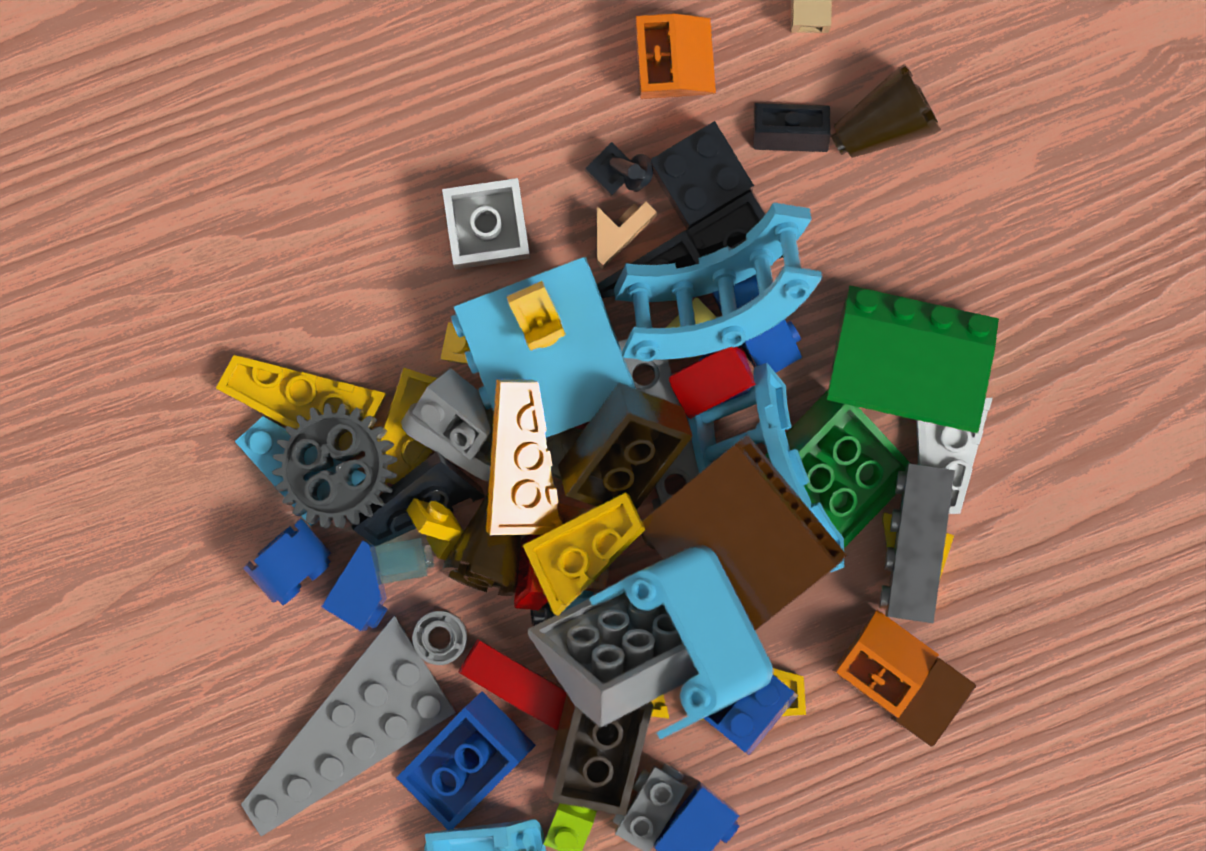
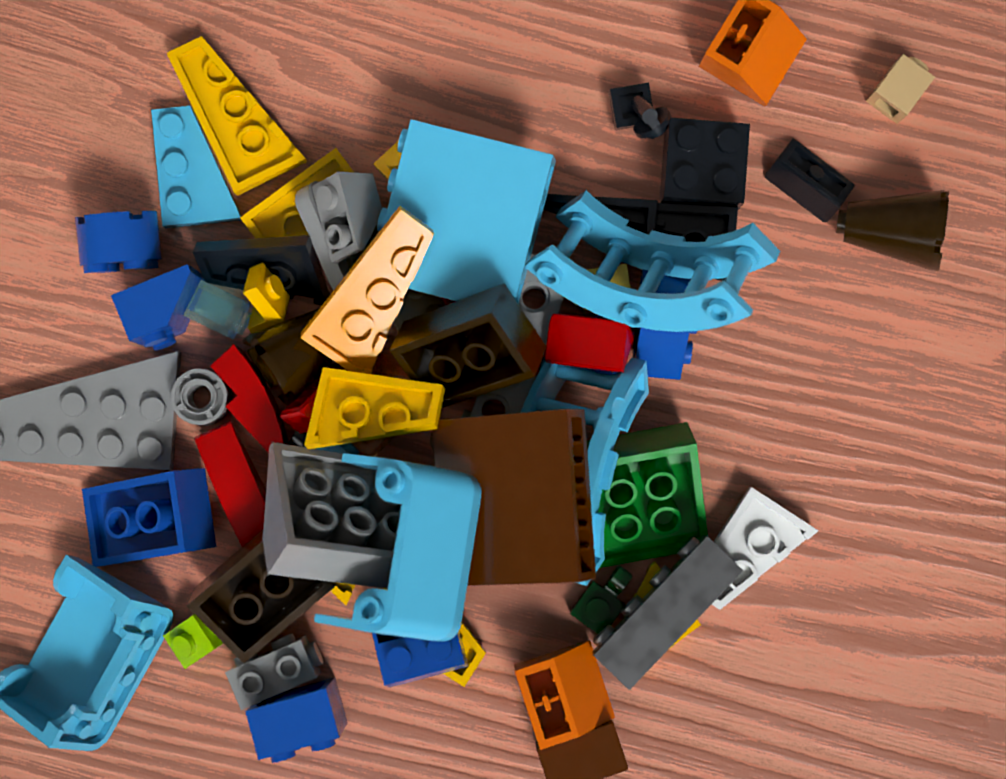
camera: 40 degrees right, 0 degrees up
(324, 434) = (203, 219): dark grey gear -> none
(485, 613) = (254, 400): none -> red slope
(486, 223) = (492, 75): white brick -> none
(536, 316) = (474, 175): yellow bracket -> none
(614, 239) = (590, 166): light nougat slope -> none
(865, 575) = (600, 604): none -> dark green plate
(913, 359) = (775, 449): green slope -> none

